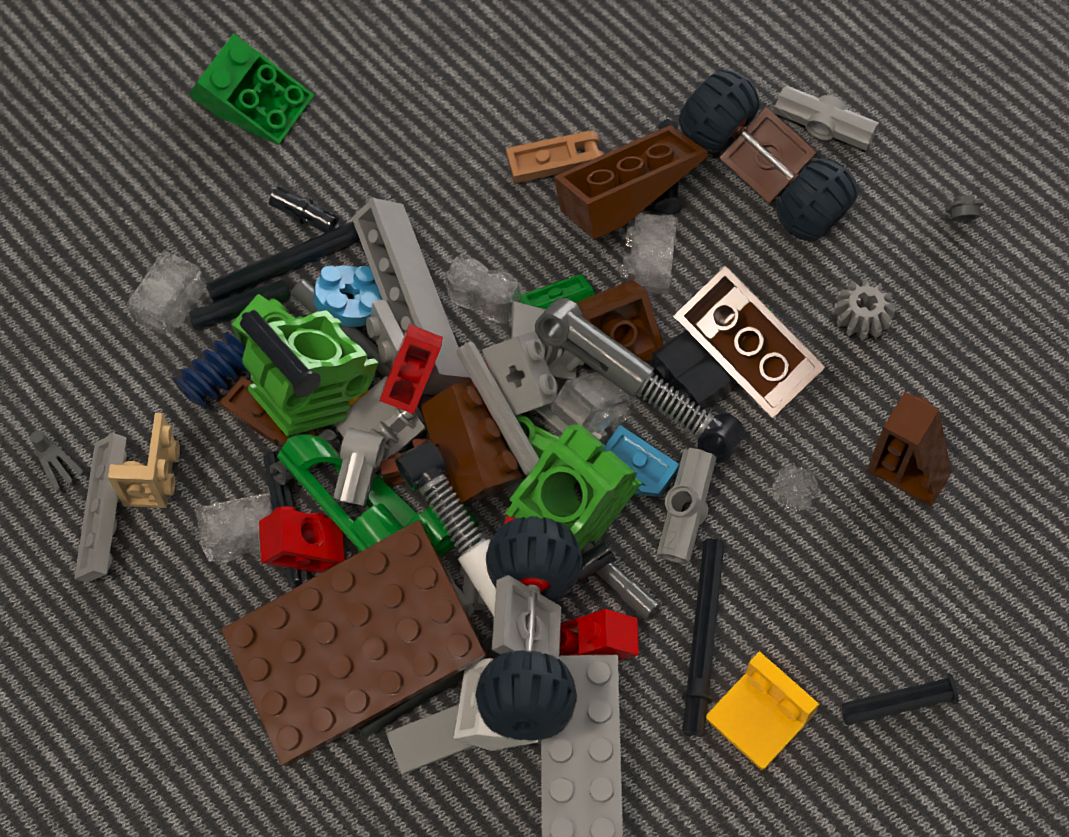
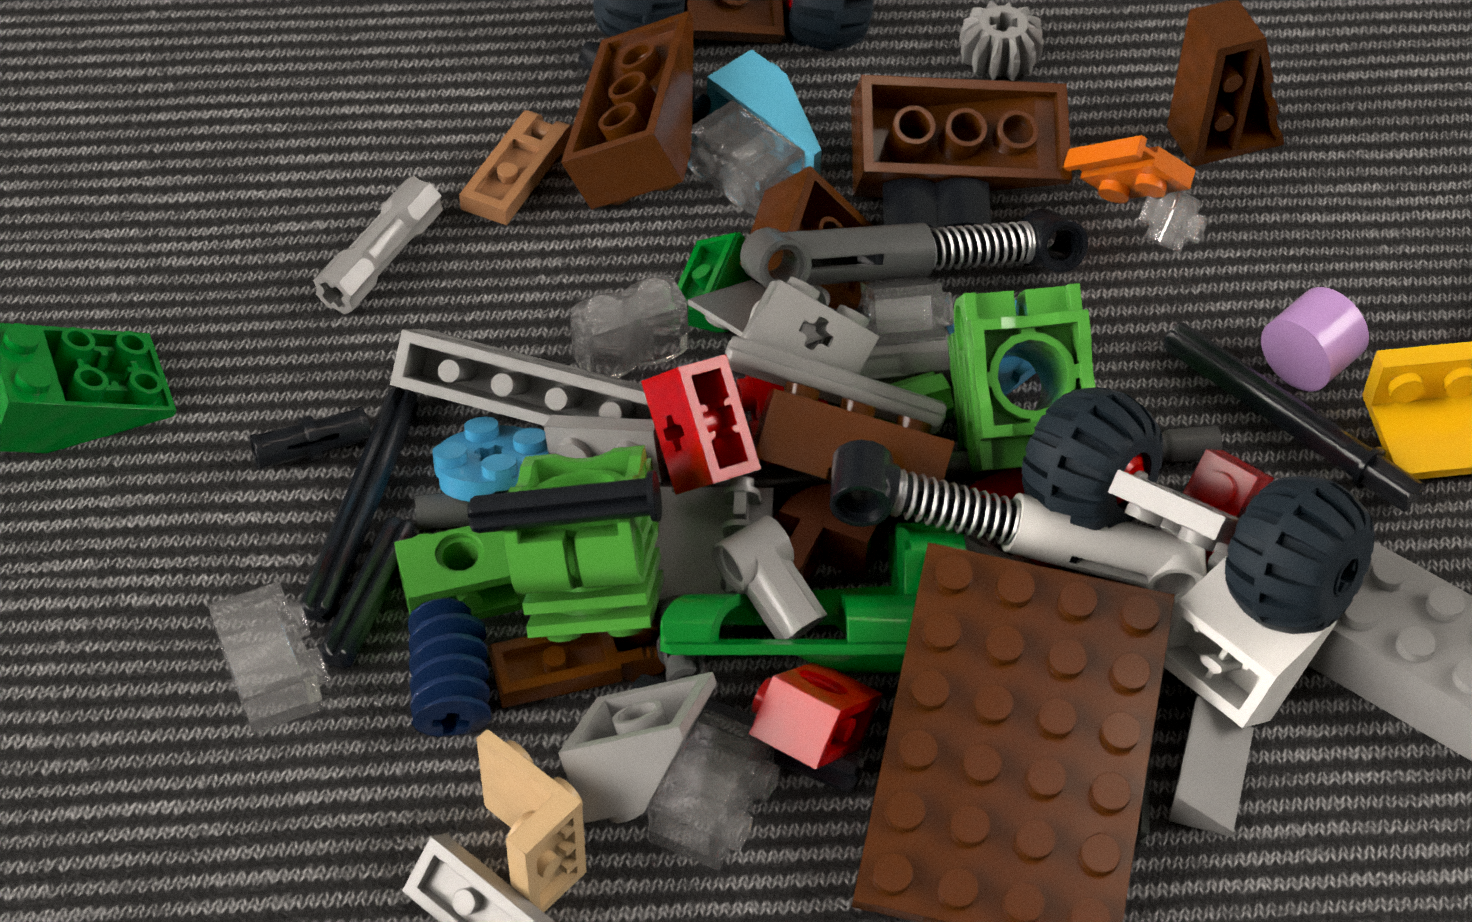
camera: 55 degrees left, 15 degrees down
(215, 475) = (630, 744): none -> light grey slope
(472, 137) = (356, 269): none -> light grey axle
(682, 527) = (1133, 342): light grey piece -> none
(698, 238) = (769, 96): none -> medium azure slope
(761, 615) = (1314, 339): none -> lavender piece
(795, 445) = (1129, 169): none -> orange plate

